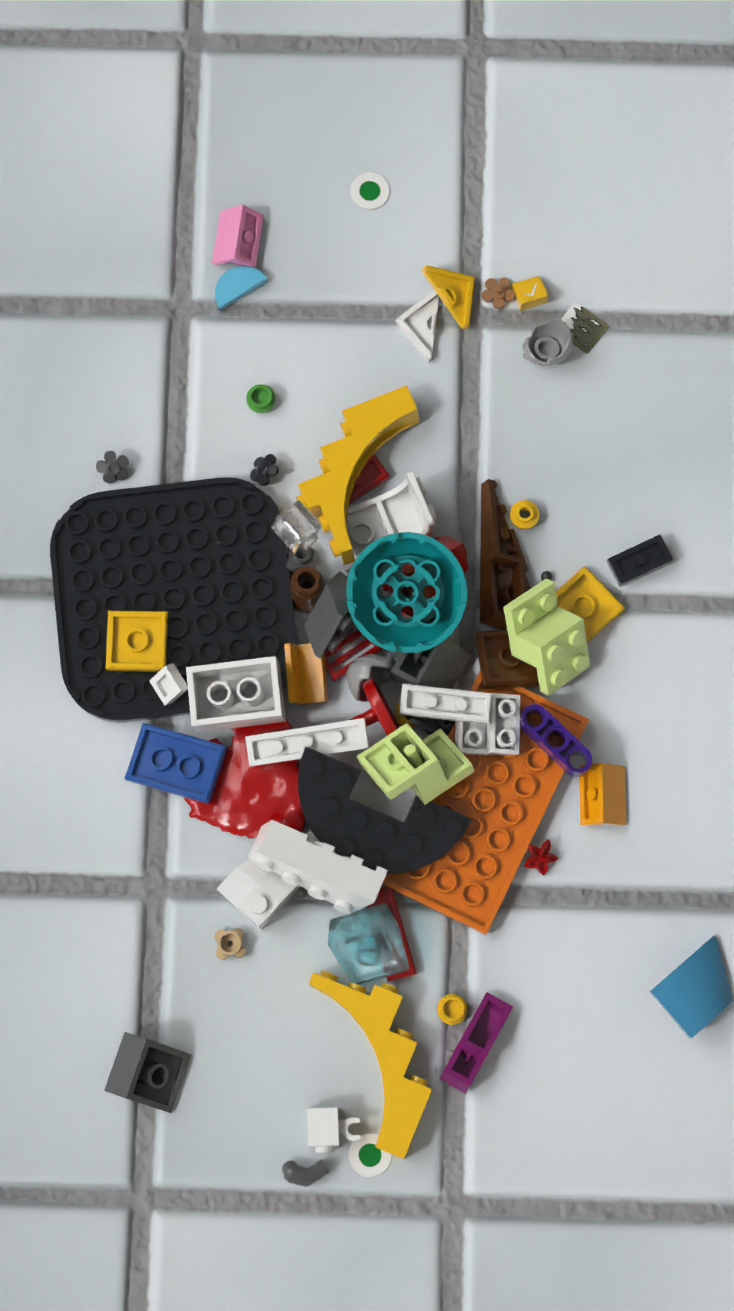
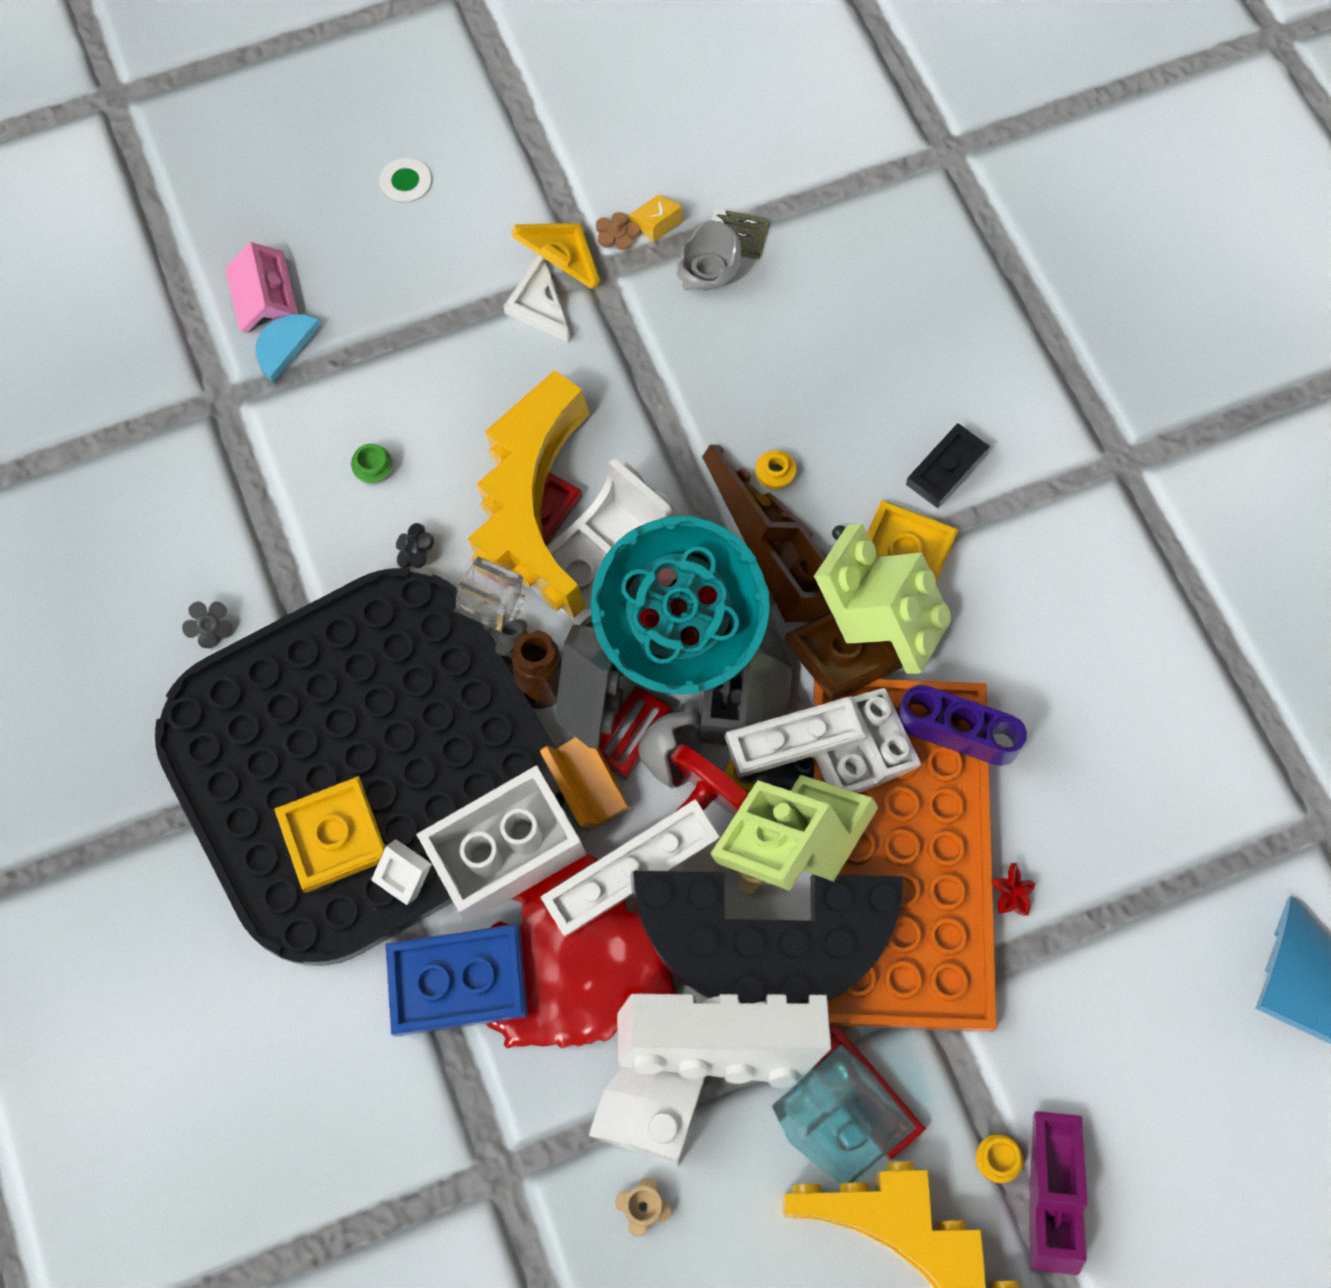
camera: 25 degrees left, 10 degrees down
(603, 795) = (1052, 776): light orange panel -> none

